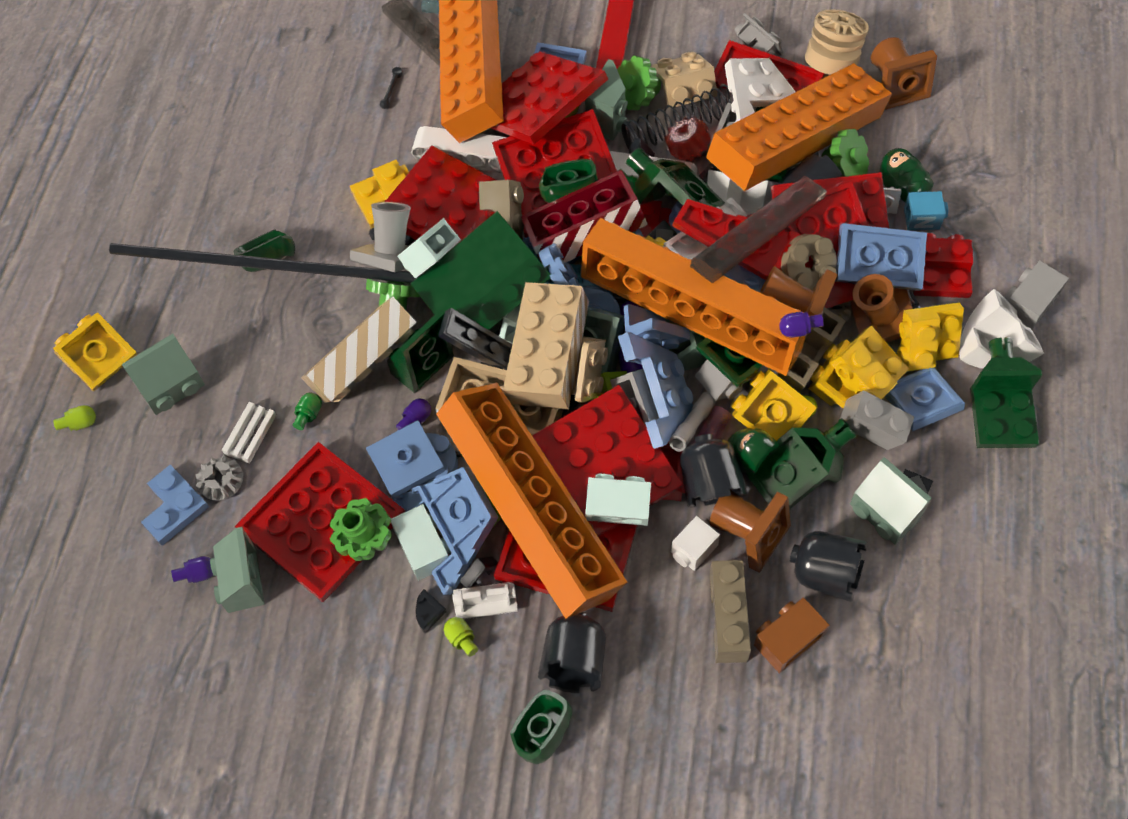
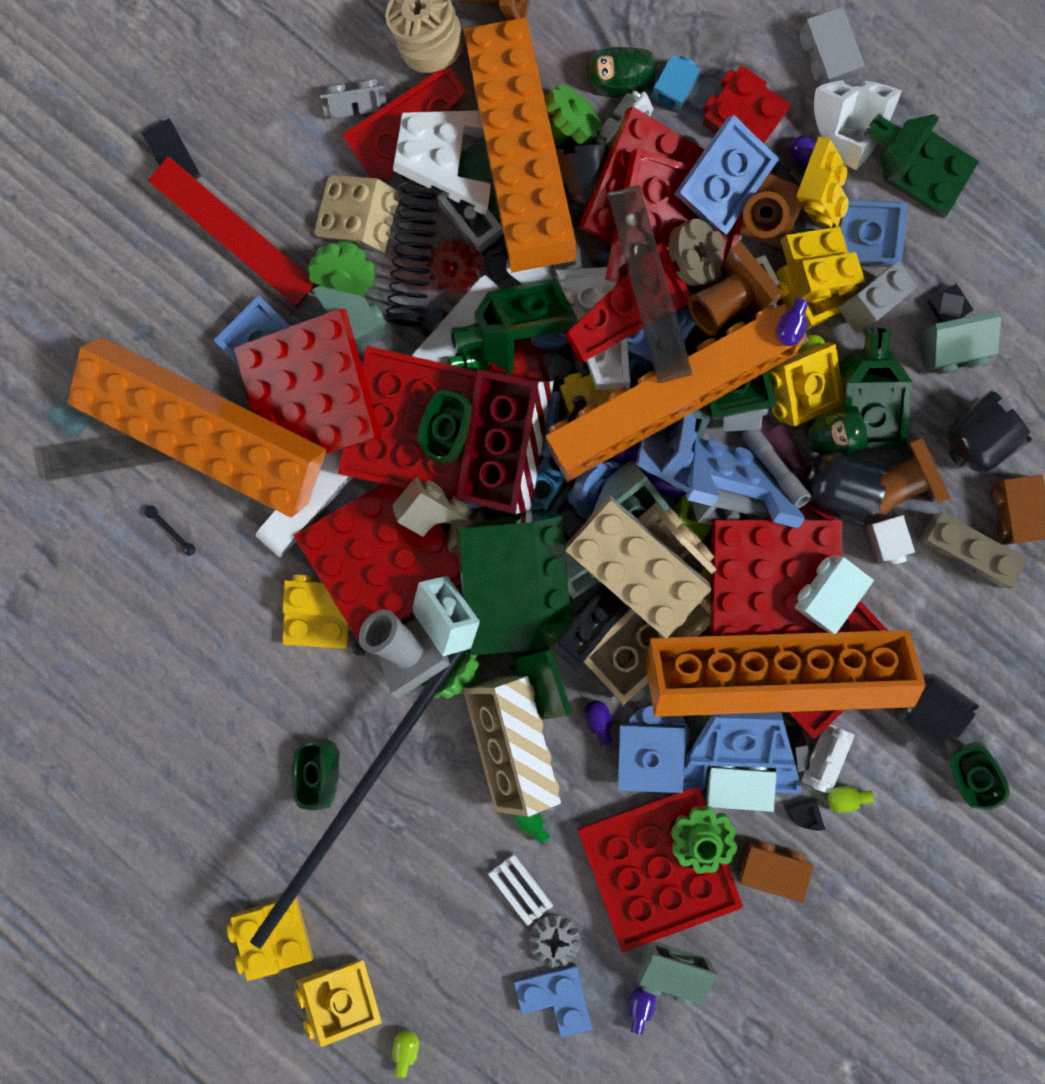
camera: 65 degrees left, 25 degrees up
(123, 287) = (283, 949): none -> yellow plate
(164, 374) = (417, 946): sand green slope -> none
(365, 607) = (774, 870): none -> dark orange piece
(560, 272) = (555, 501): medium blue plate -> none

